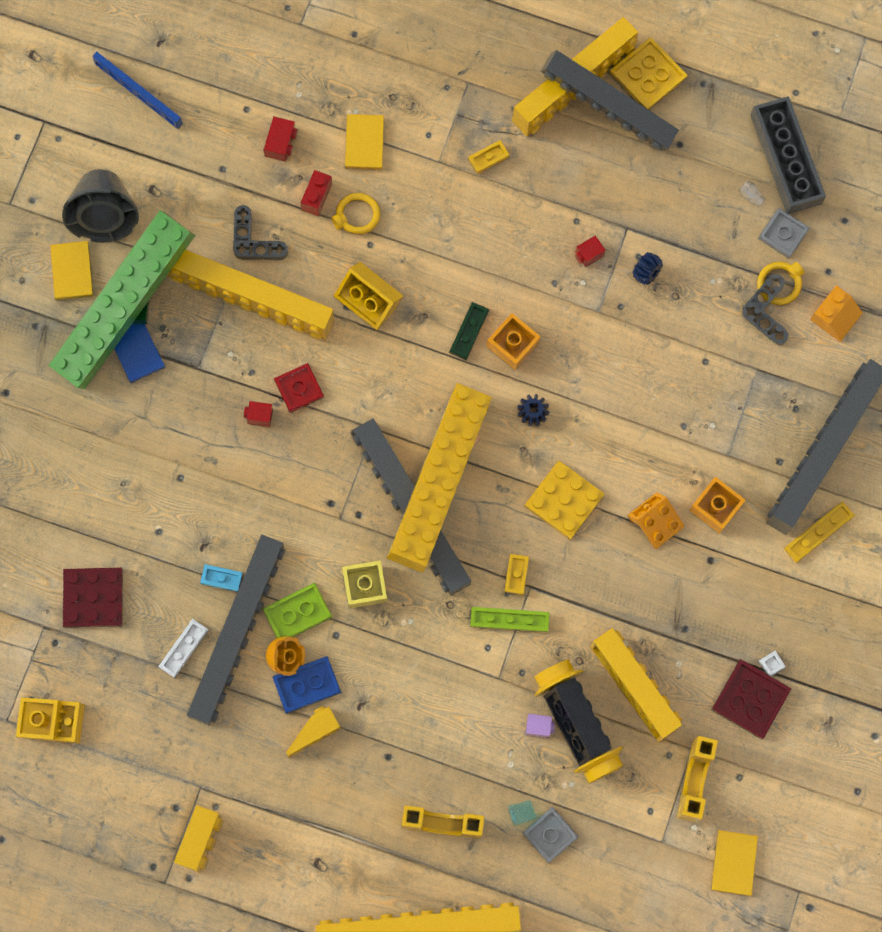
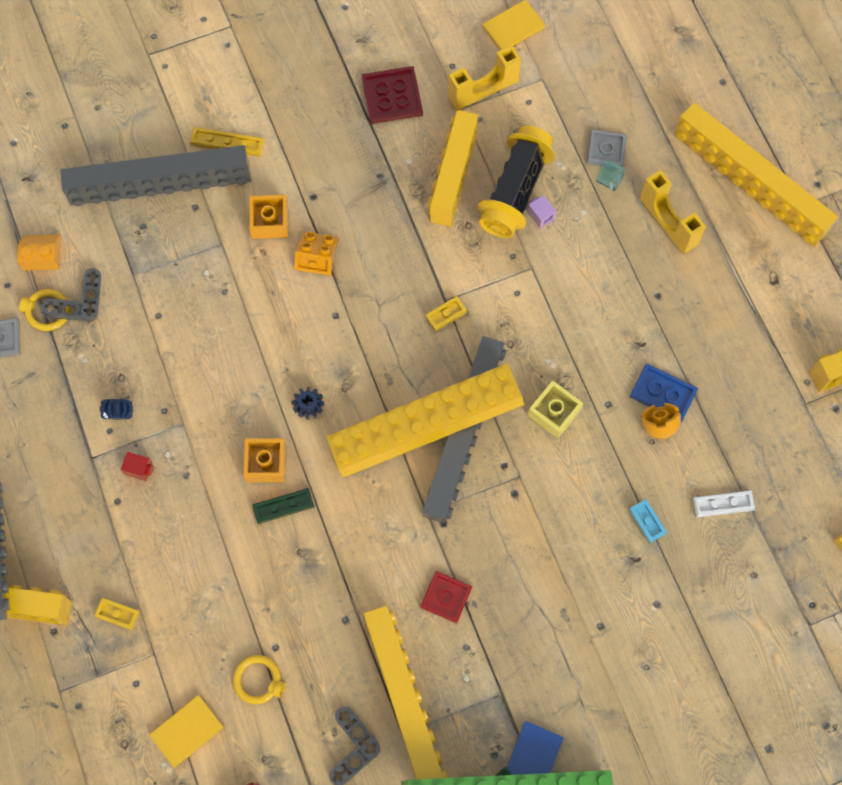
camera: 125 degrees left, 5 degrees down
(92, 597) = (753, 607): dark red plate -> none
(235, 631) = (674, 475): dark grey brick -> none
(259, 413) = (496, 607): red brick -> none
(297, 612) = (619, 444): lime tile -> none
(316, 193) = (268, 728): red brick -> none
(317, 728) = (687, 356): yellow slope -> none
(368, 295) = (322, 607): yellow slope -> none
(509, 619) = (484, 292): lime plate -> none
(564, 500) = (358, 327): yellow plate -> none
(772, 663) = (353, 102): white tile -> none

